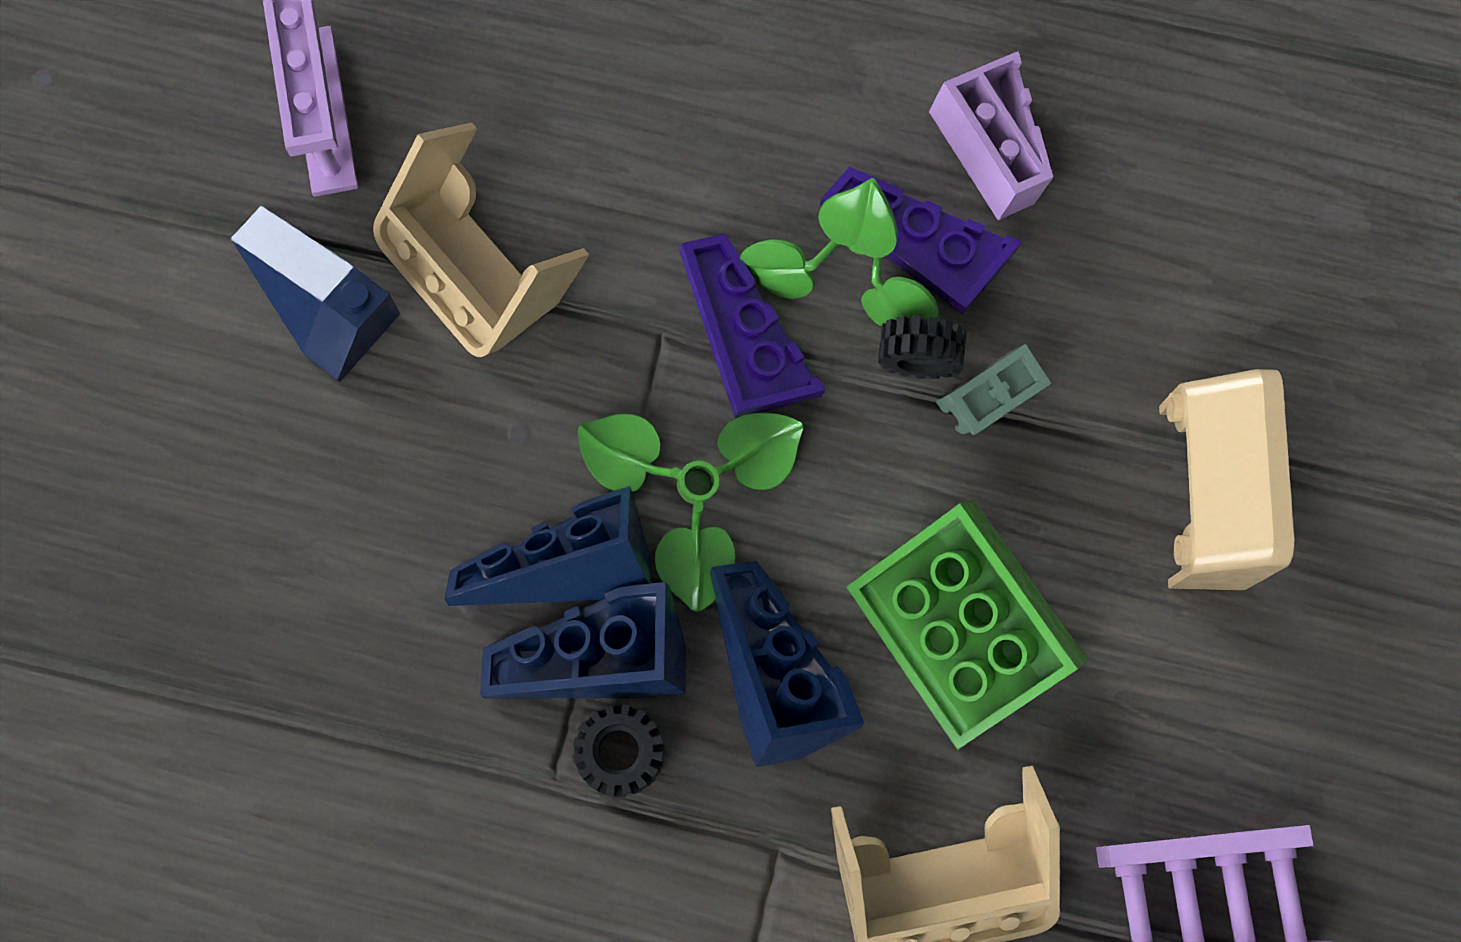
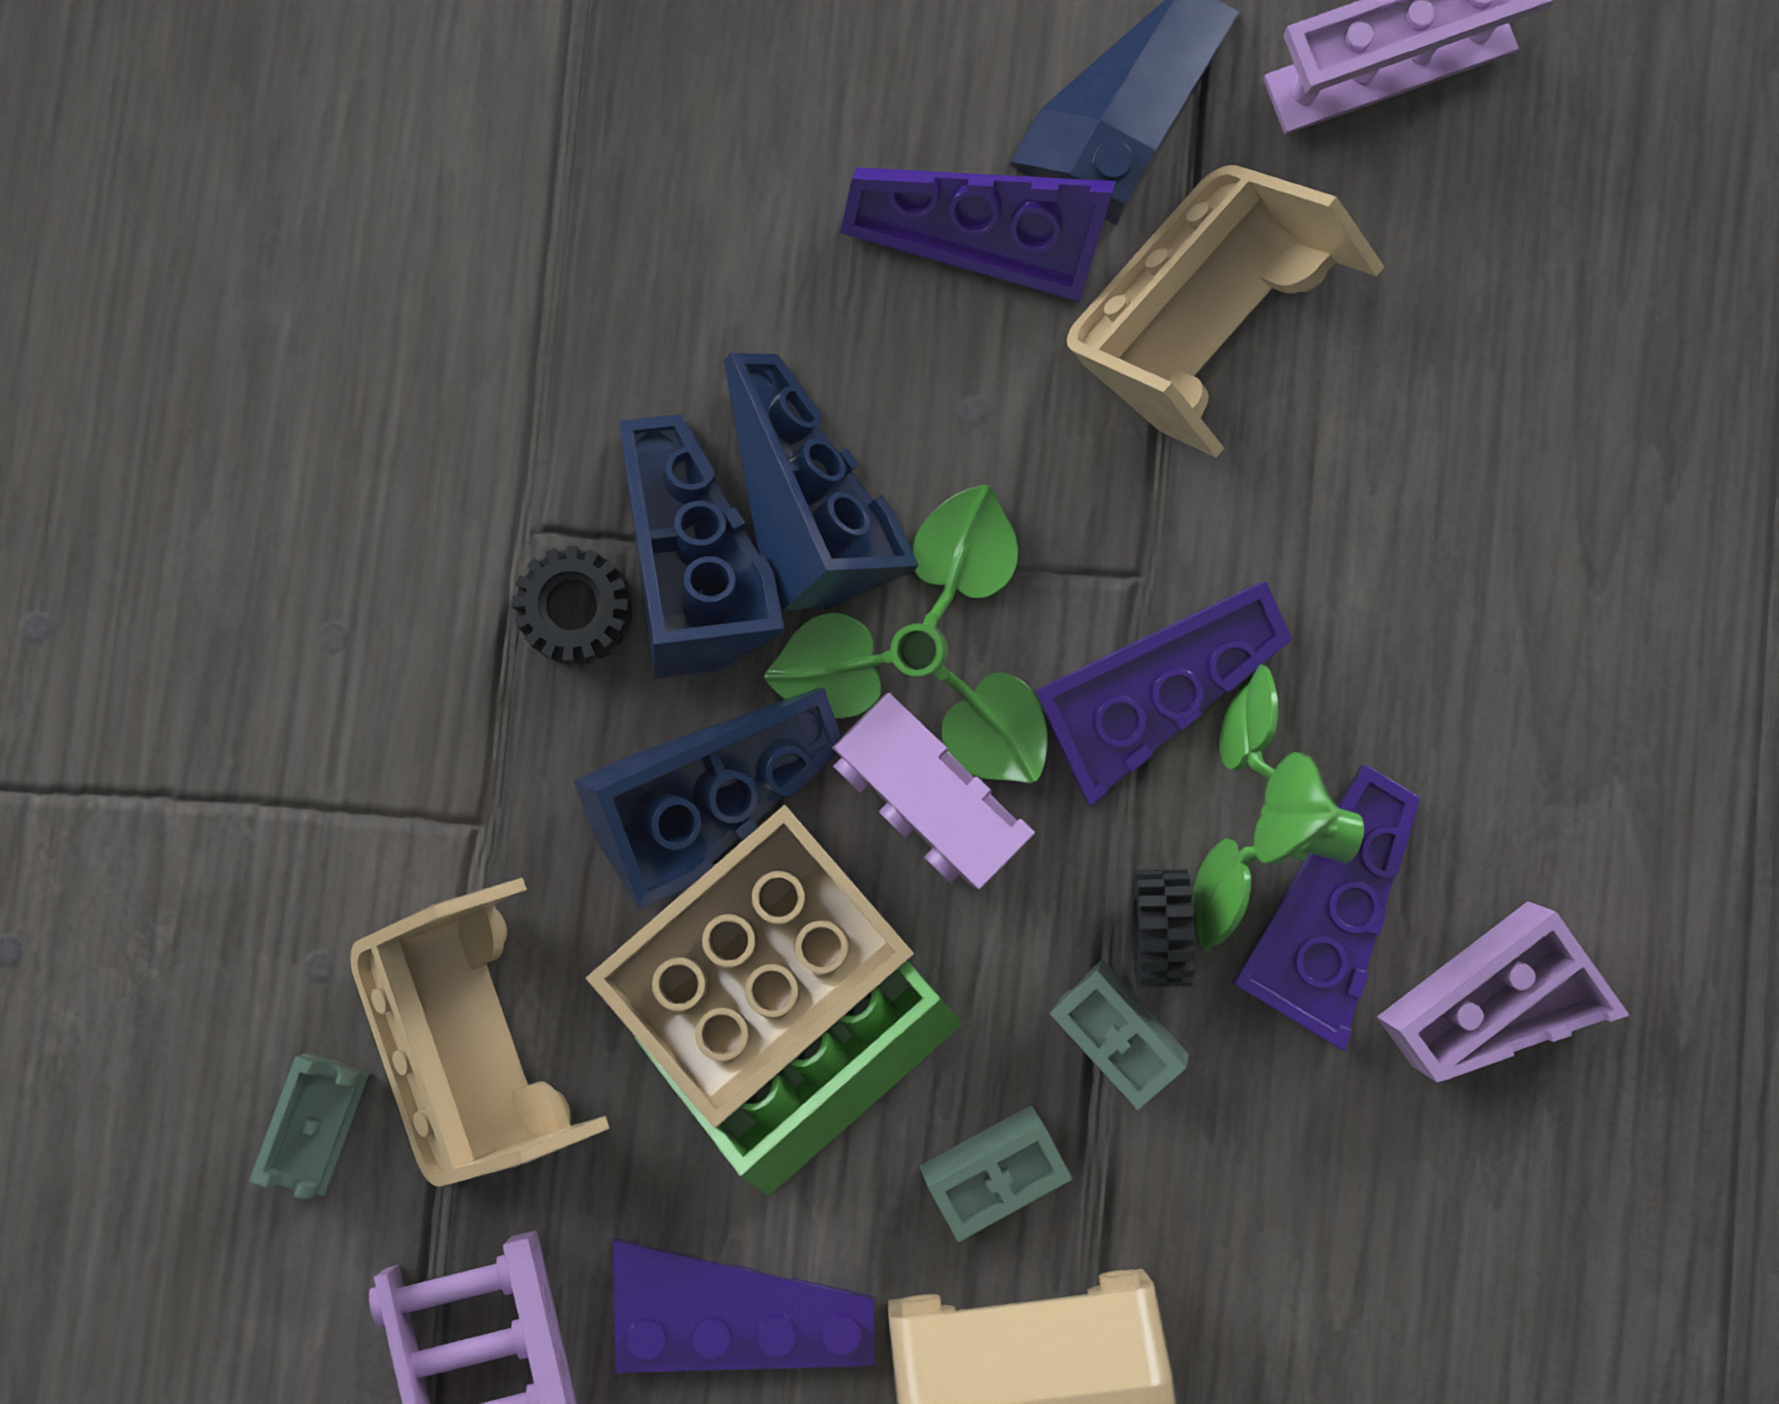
camera: 80 degrees right, 10 degrees up
(383, 394) = (996, 225): none -> dark purple wing
(804, 496) = (929, 793): none -> lavender wedge
(915, 646) = (749, 966): none -> tan slope
(1084, 493) = (995, 1173): none -> sand green hinge
(1172, 719) = (720, 1316): none -> dark purple wing

